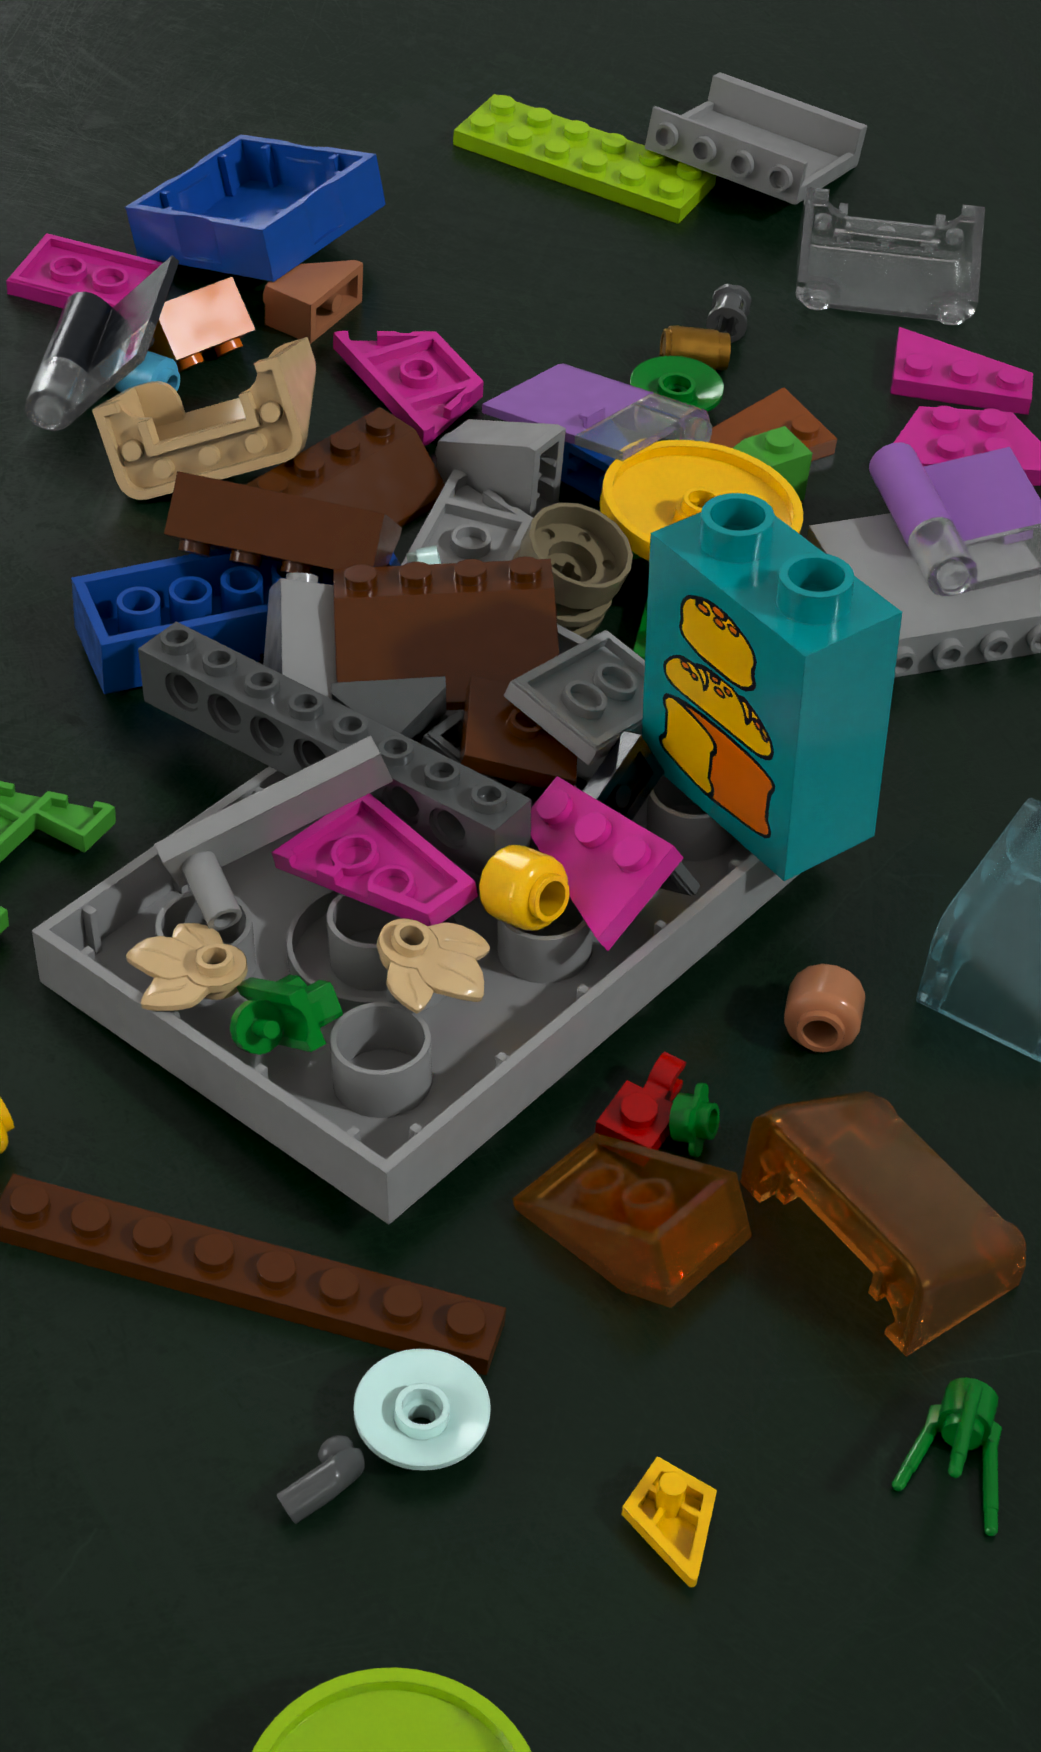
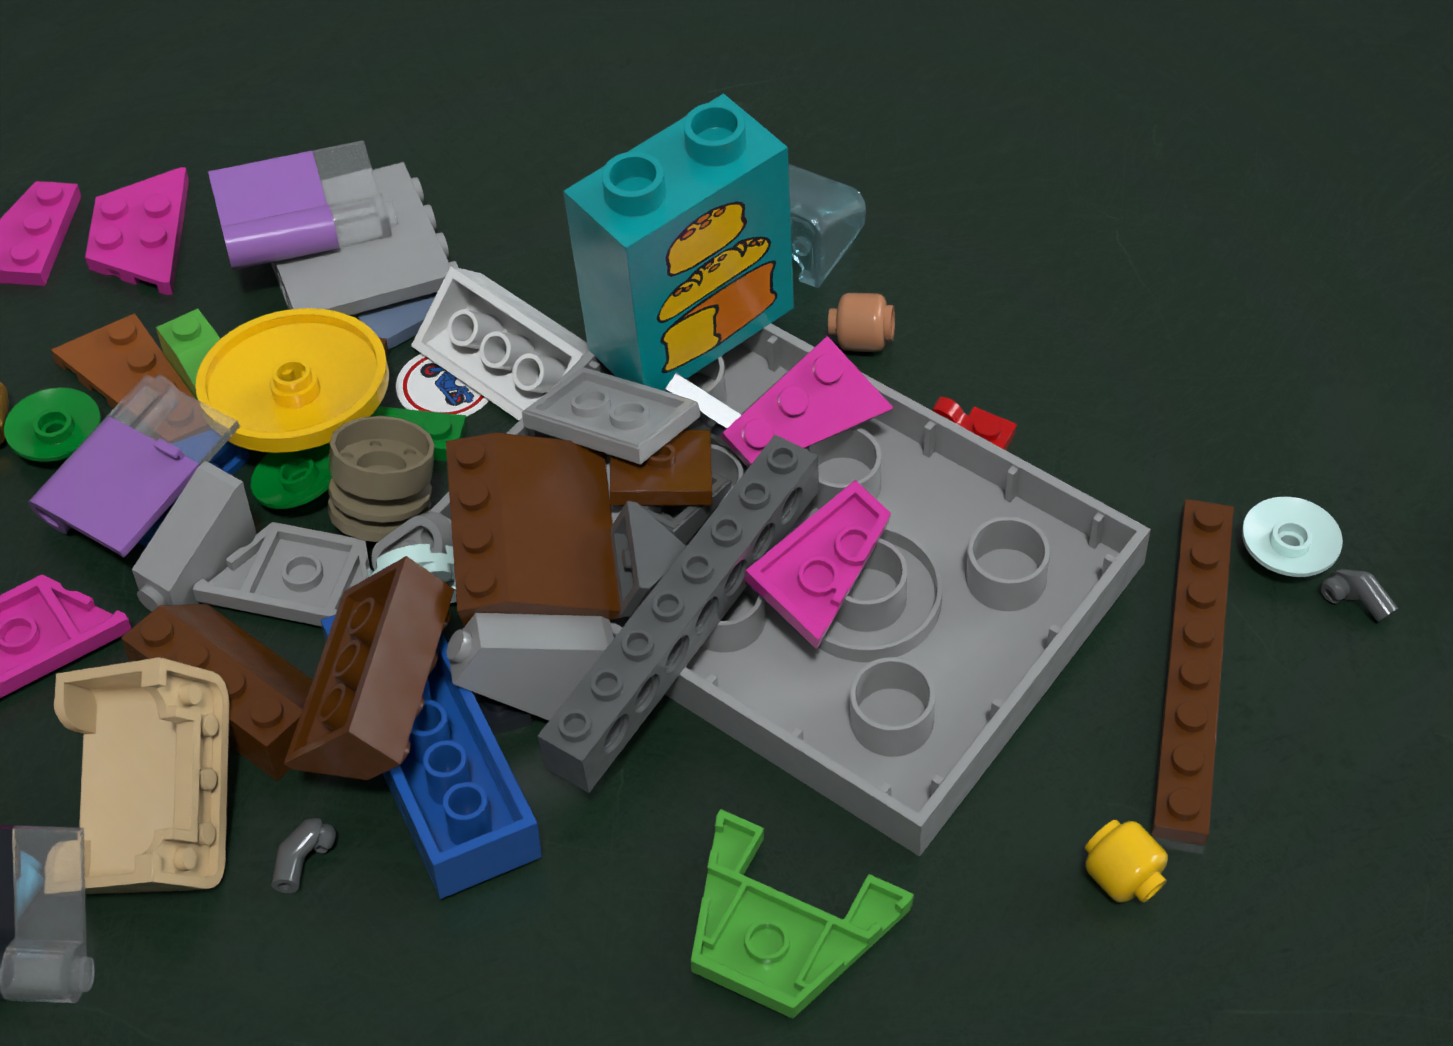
camera: 90 degrees left, 5 degrees up
(142, 536) = (292, 851): none -> dark grey arm
(188, 967) = (955, 696): tan plate -> none
(200, 850) = (838, 680): light grey piece -> none
(283, 1014) = (998, 624): green hips -> none
(431, 961) = (932, 515): tan plate -> none
(524, 887) = (849, 452): yellow head -> none
(639, 1215) = (1087, 421): clear orange slope -> none
(672, 1516) = (1318, 408): yellow piece -> none
(694, 1119) = (985, 395): green plate -> none
(893, 1204) = (1041, 287): clear orange windscreen -> none
(965, 1424) = (1198, 258): green plant -> none

